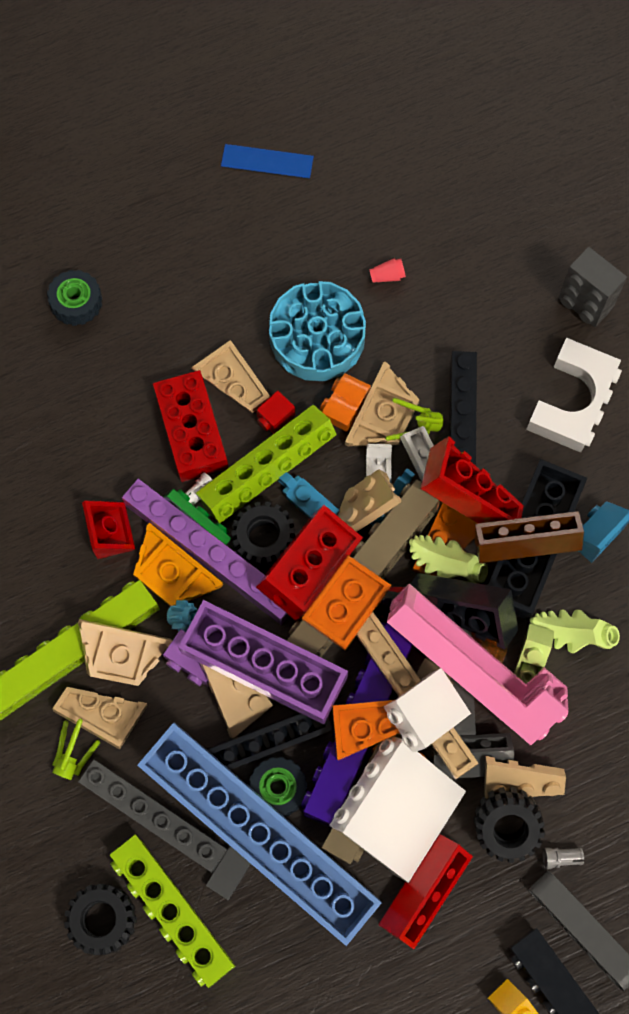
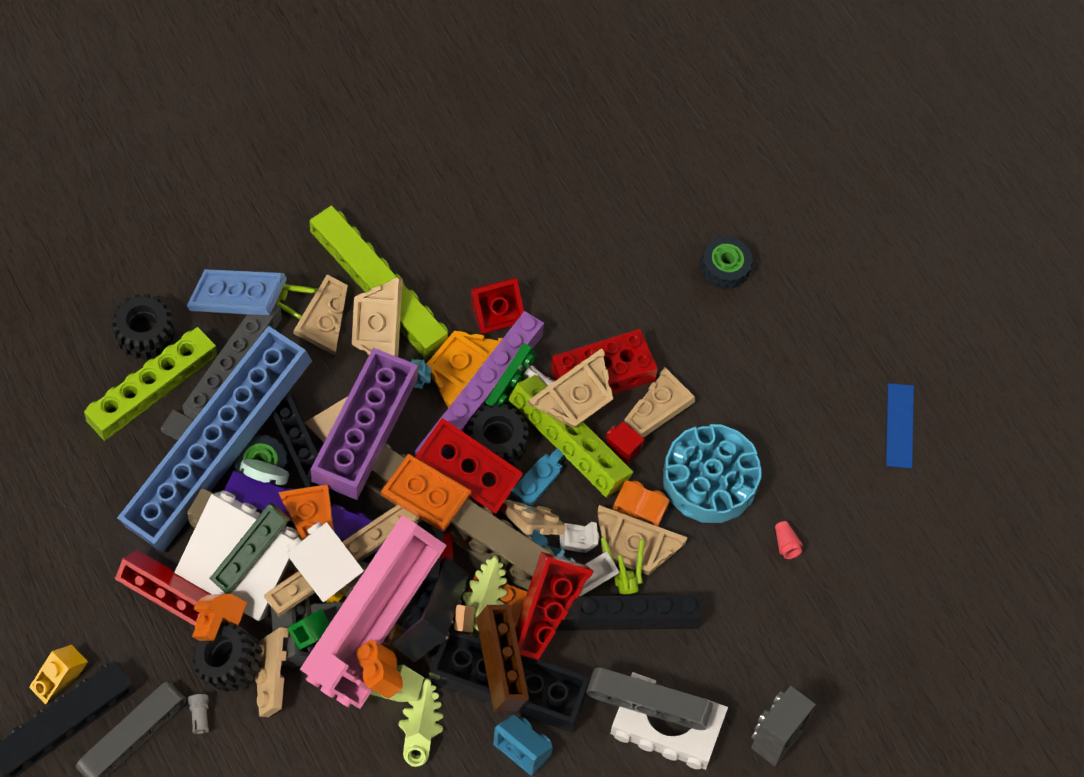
camera: 80 degrees right, 10 degrees down
(69, 809) = (237, 292): none -> medium blue tile
(228, 447) = (577, 392): none -> tan wing
(303, 778) = (264, 471): none -> light aqua tile
(402, 792) = (249, 548): none -> dark green tile
(465, 834) = (214, 610): none -> orange brick
(476, 576) = (464, 618): none -> light nougat tile
(486, 733) = (309, 628): none -> green brick
(535, 661) = (379, 668): none -> orange brick
(563, 405) = (649, 699): none -> dark grey beam

